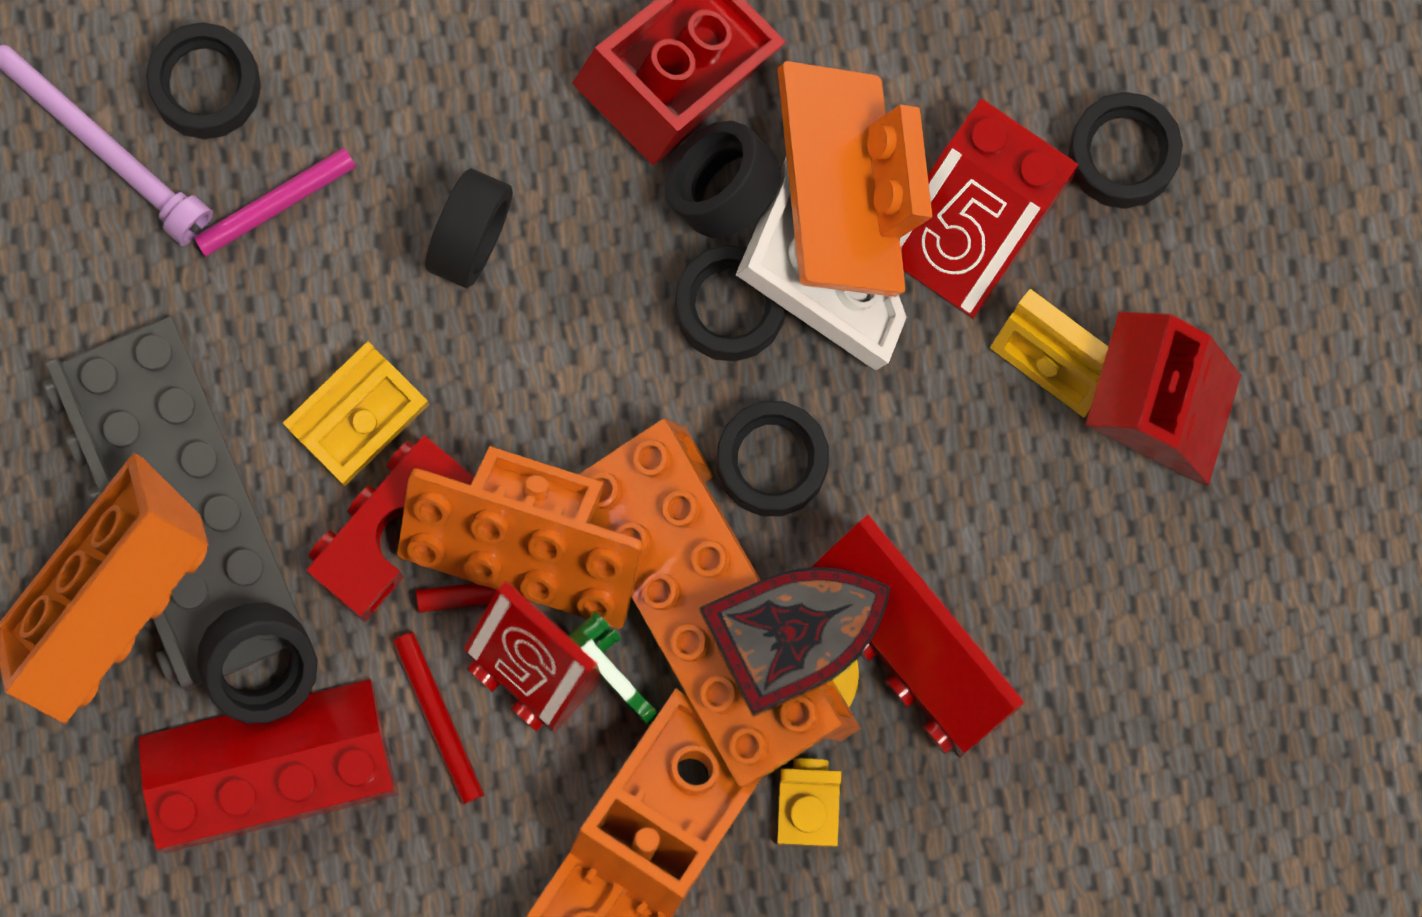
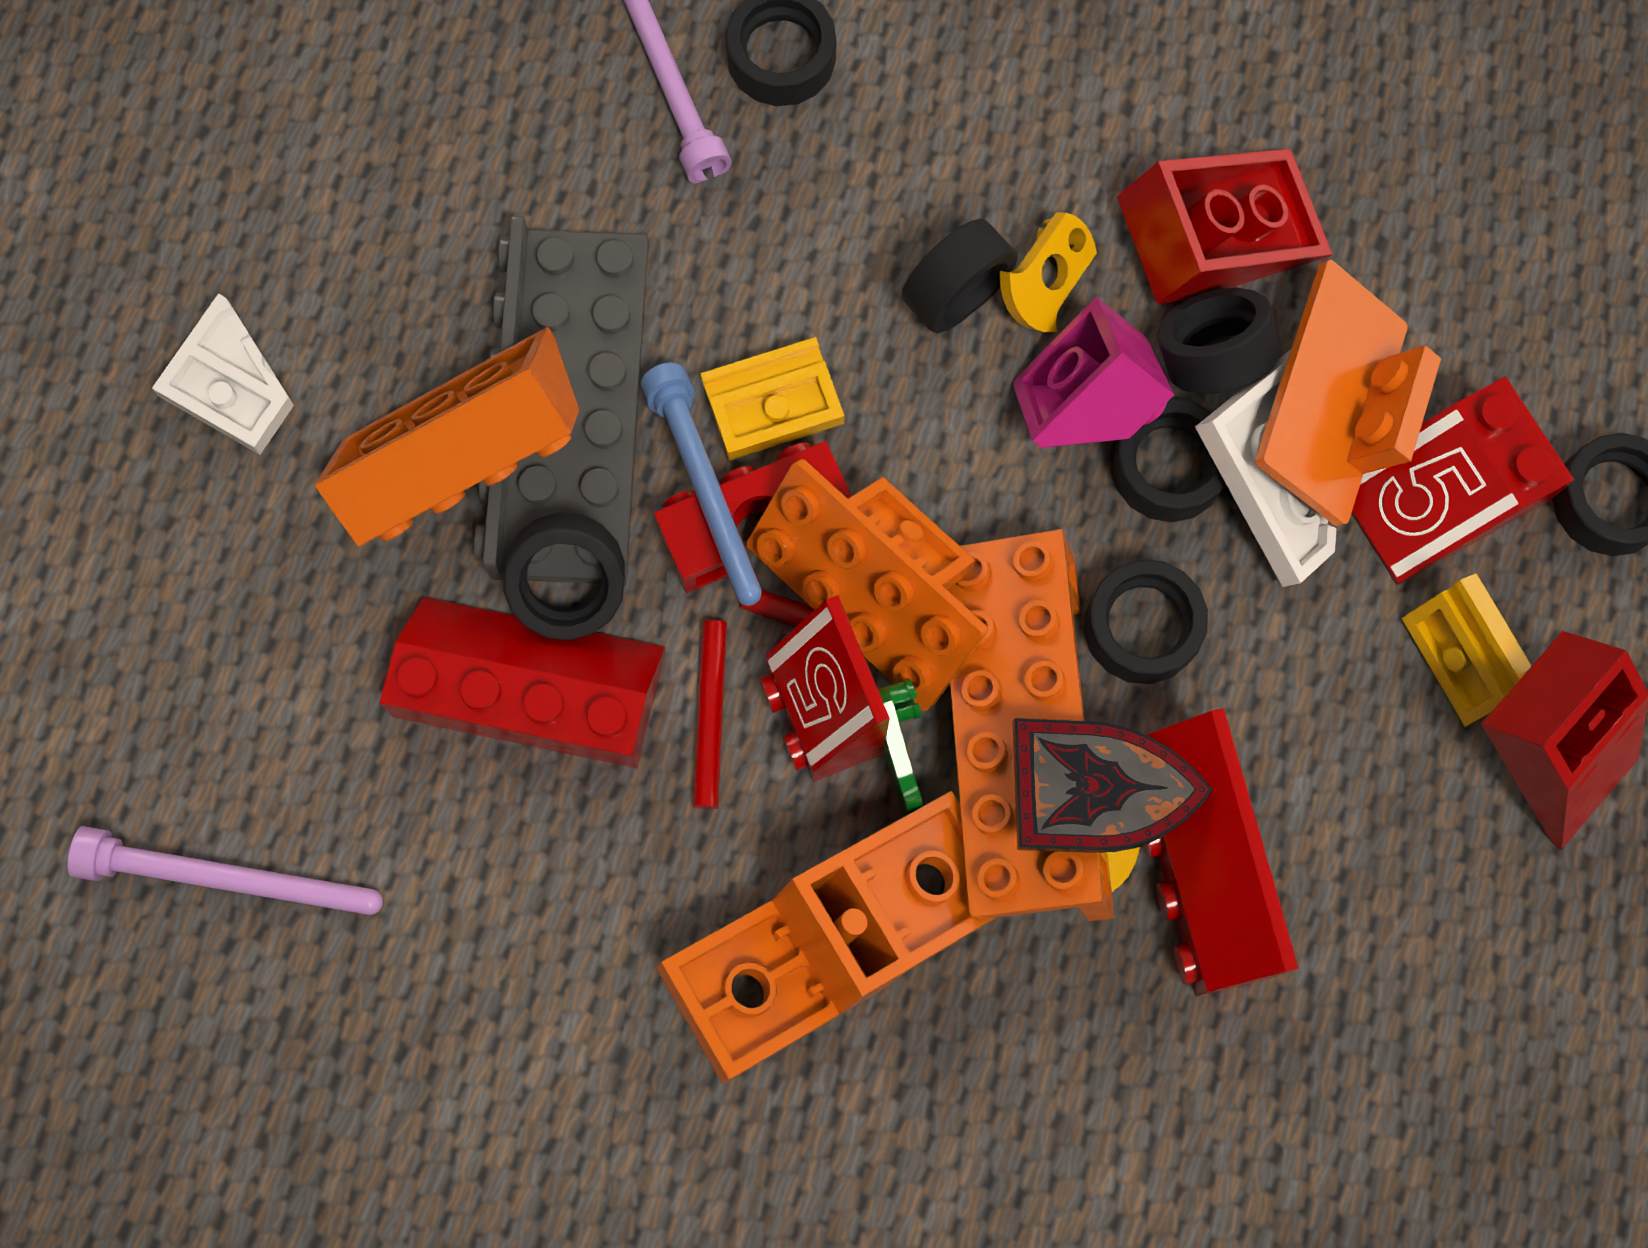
camera: 25 degrees right, 5 degrees down
(265, 454) = (671, 396): none -> medium blue piece
(274, 202) = (792, 181): dark pink bar -> none
(530, 211) = (1023, 288): none -> yellow piece
(629, 271) = (1092, 382): none -> dark pink slope
(809, 804) = (1027, 968): yellow bracket -> none

